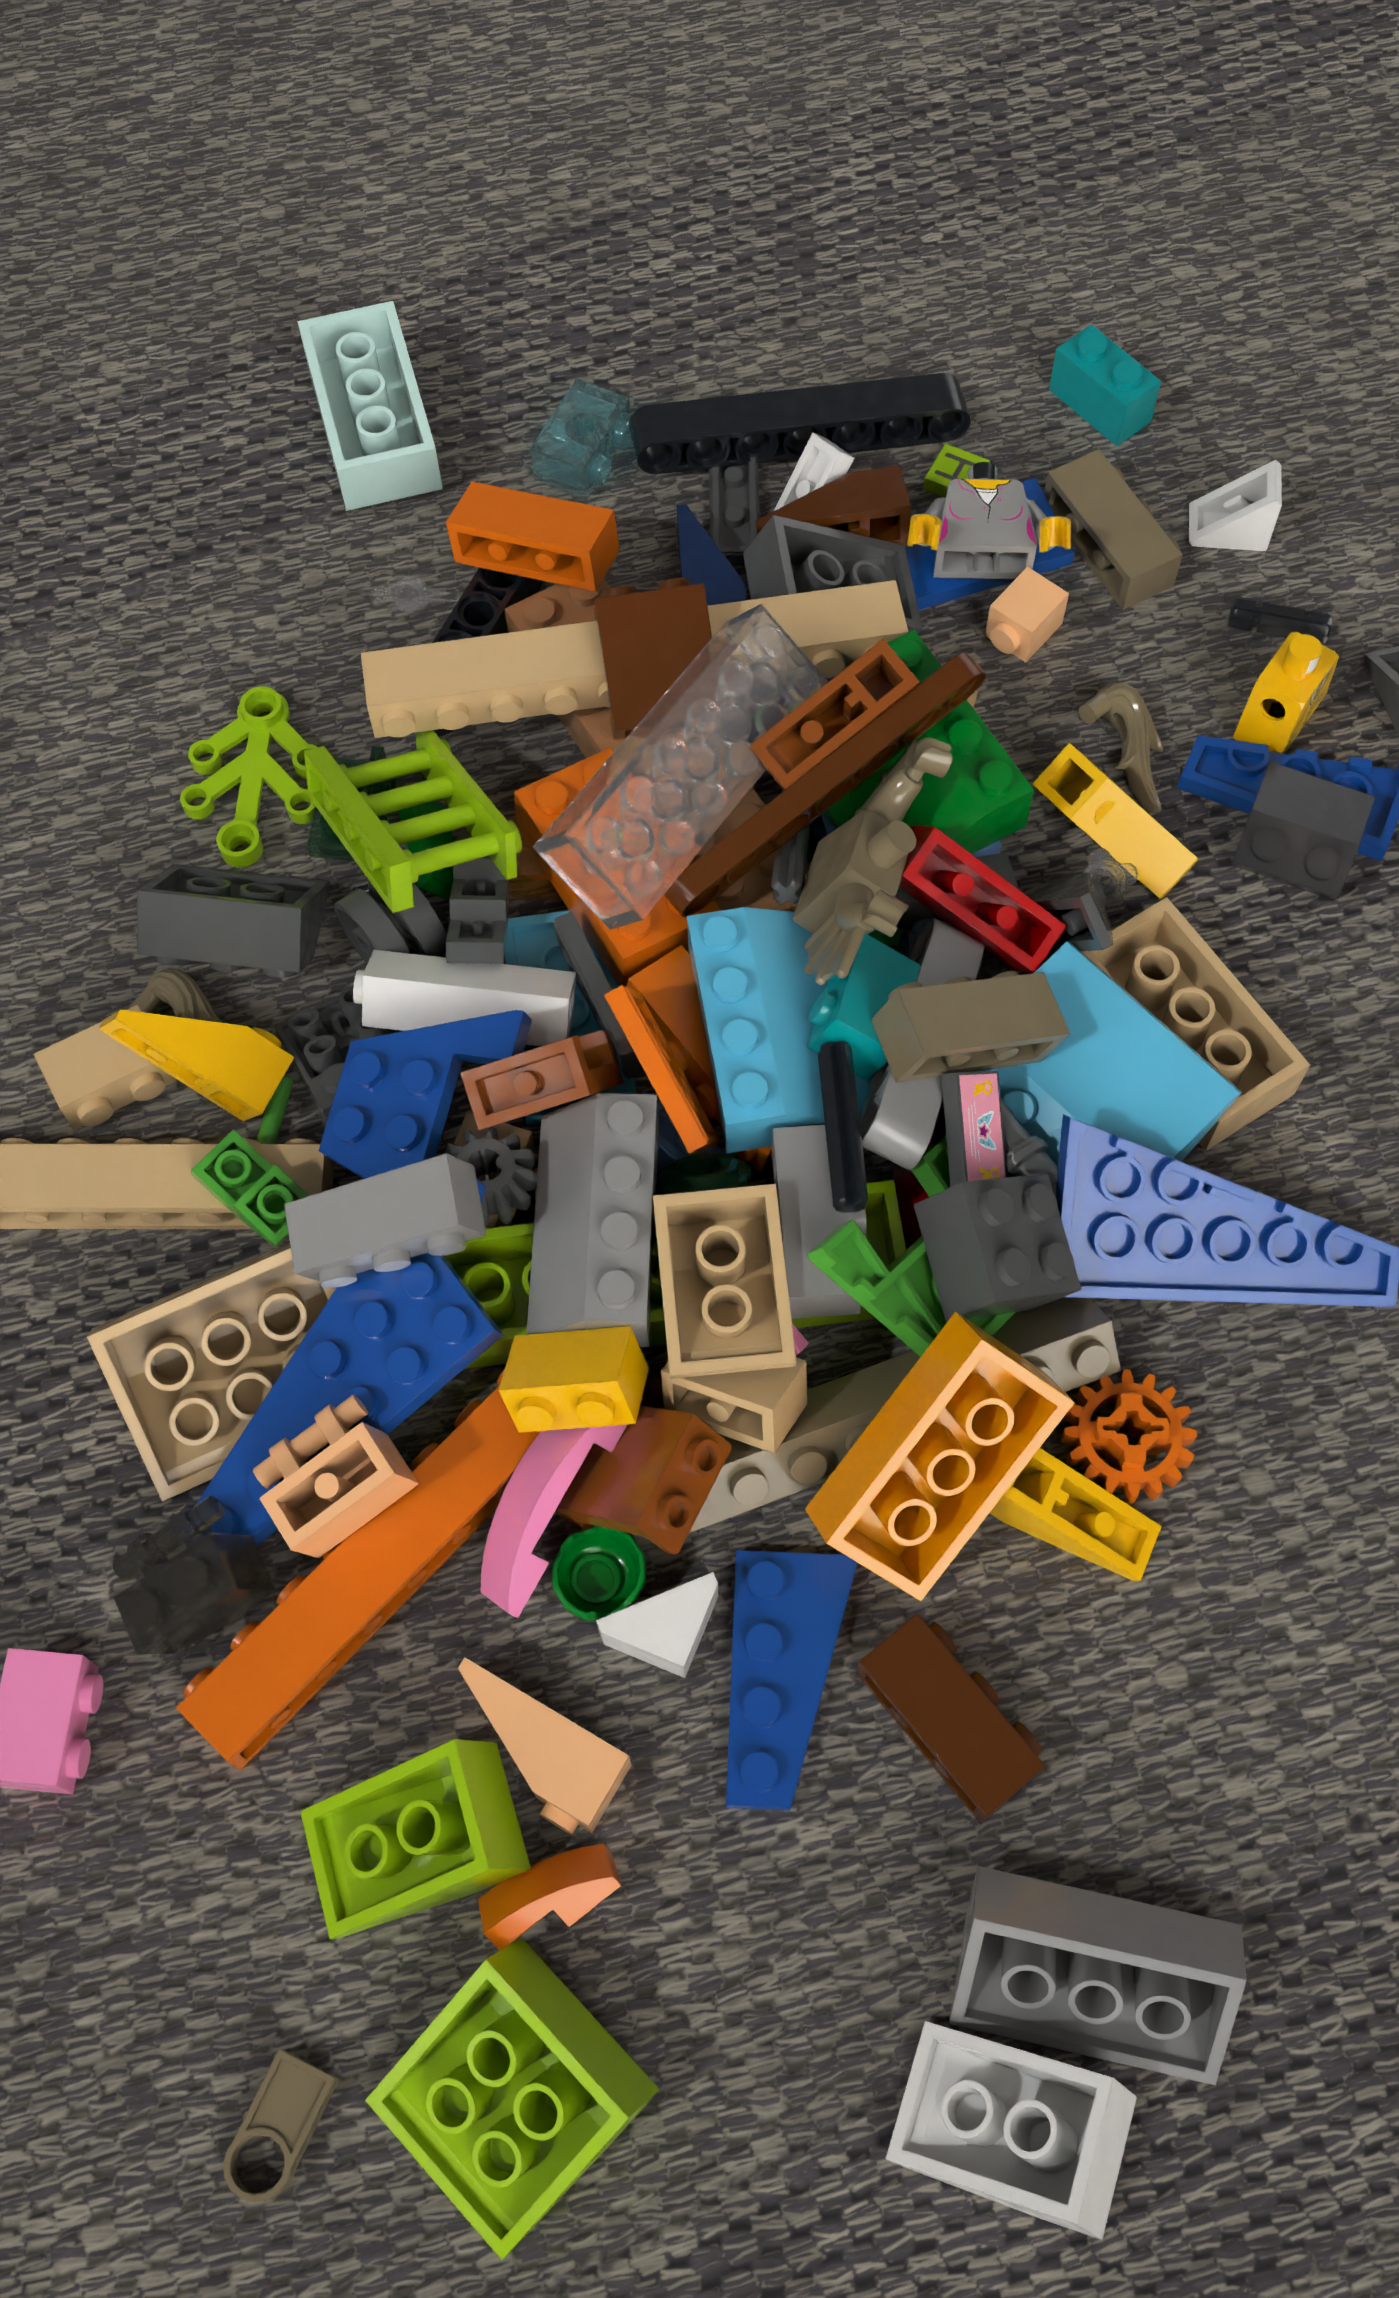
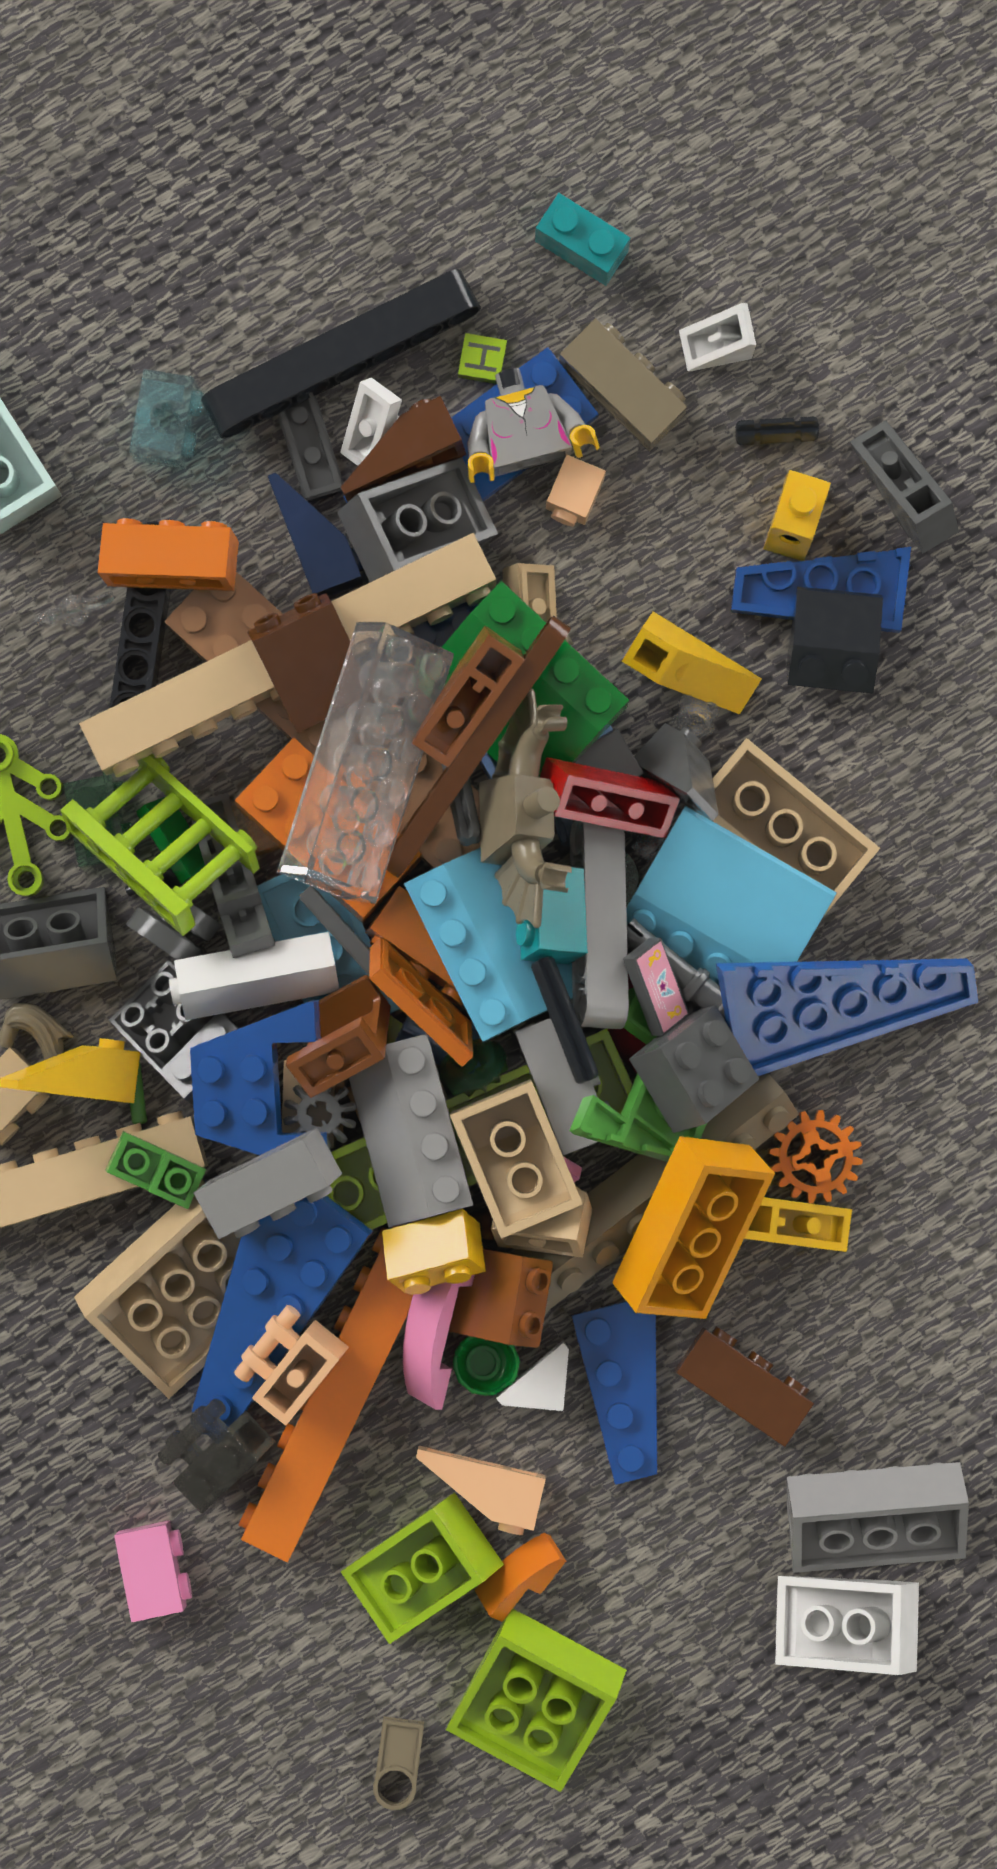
camera: 20 degrees left, 20 degrees up
(969, 1025) = (632, 914): dark tan brick -> none
(1130, 717) = (689, 574): dark tan piece -> none

